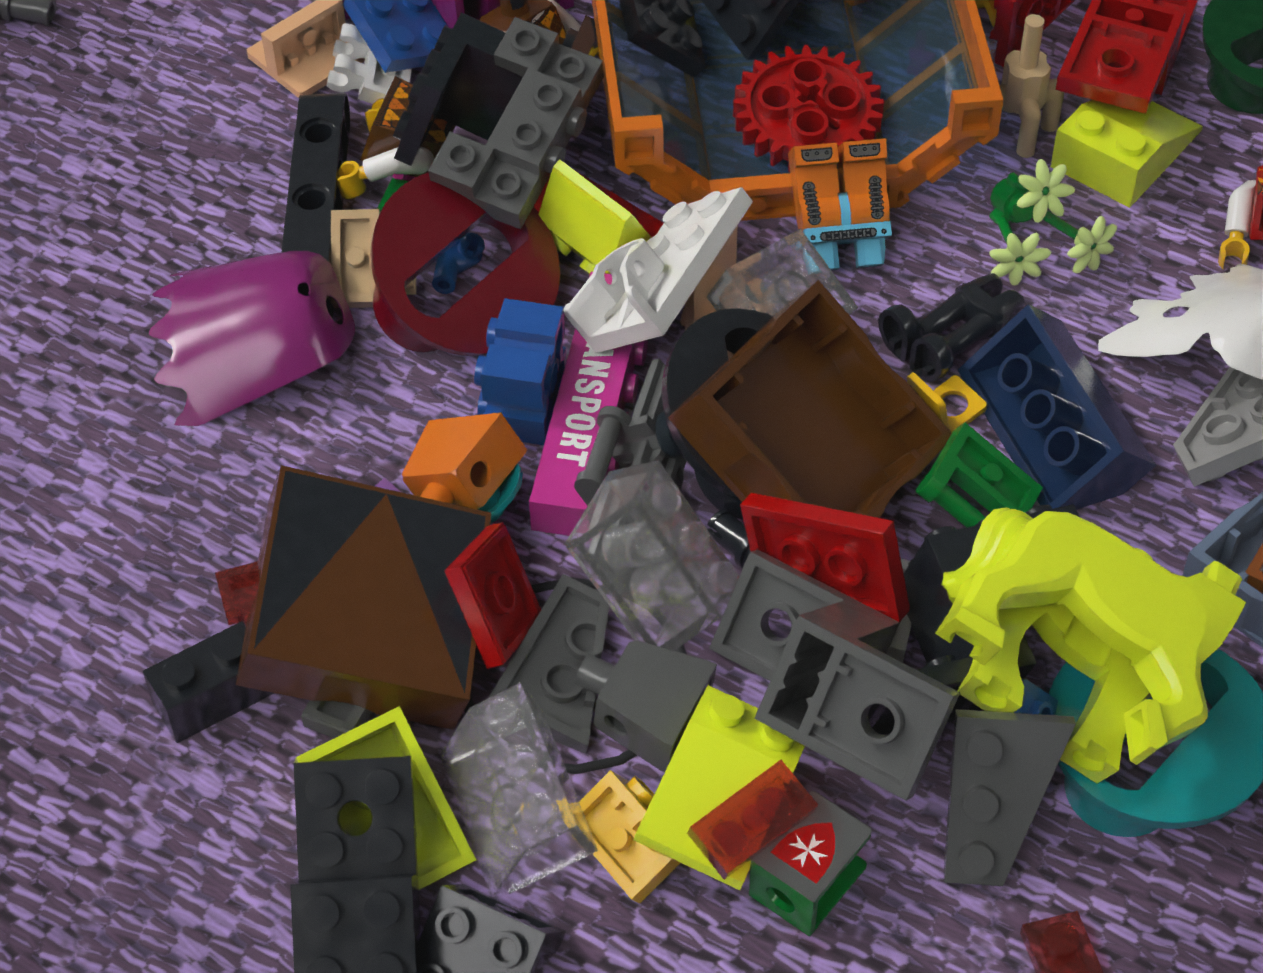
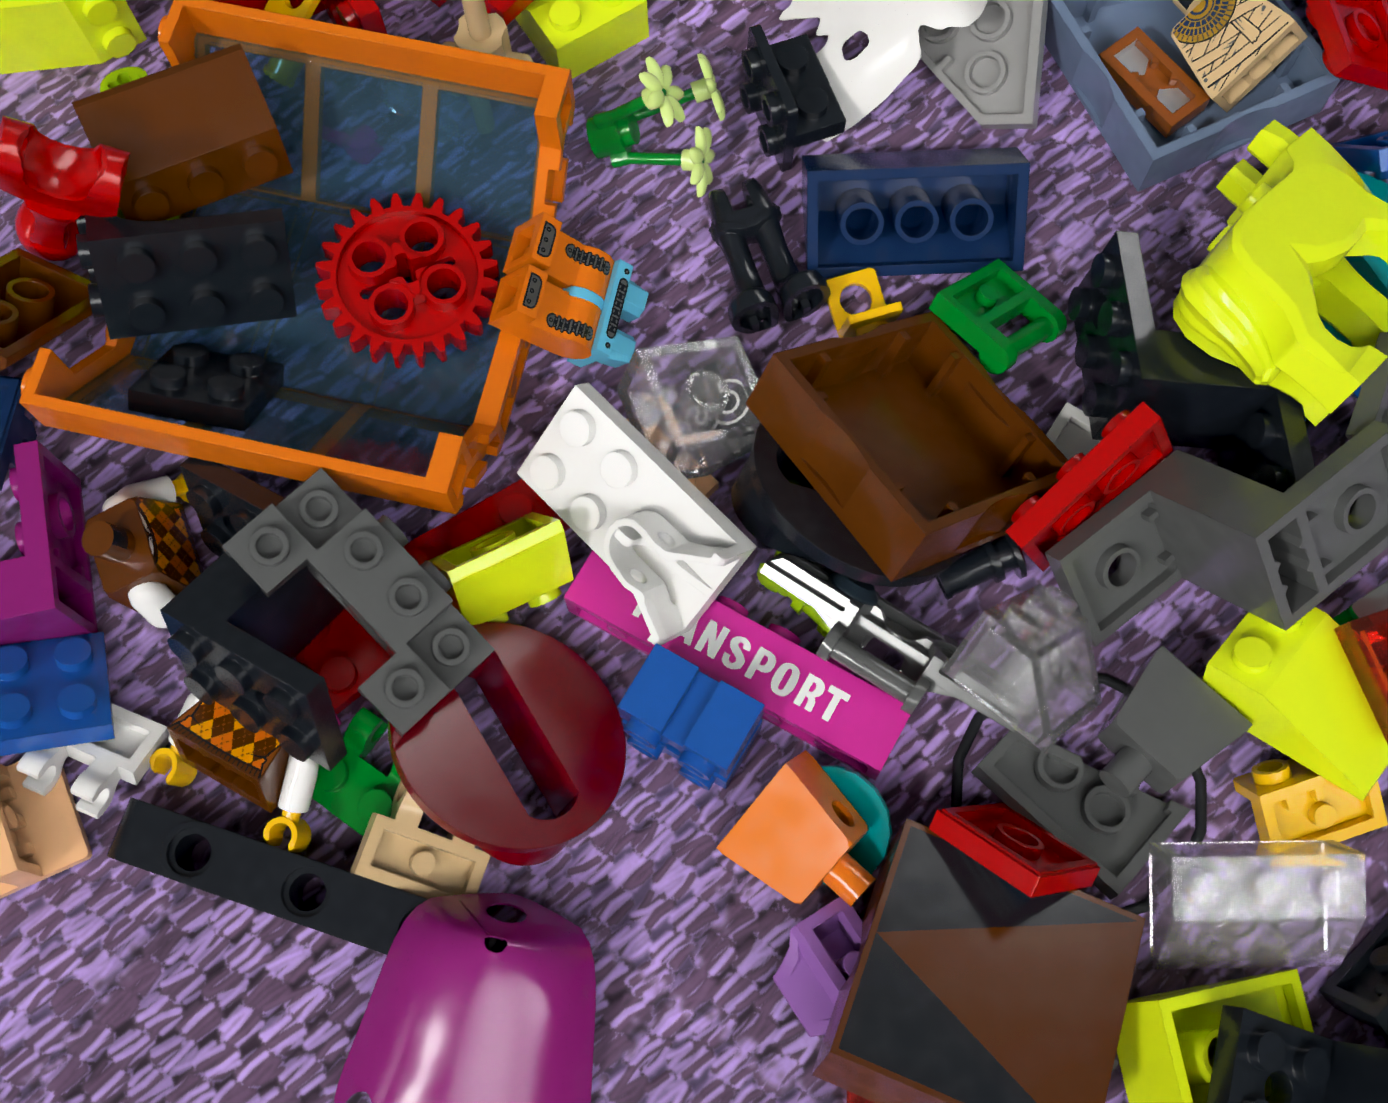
camera: 70 degrees left, 20 degrees up
(1108, 284) = (788, 95): none -> black bracket

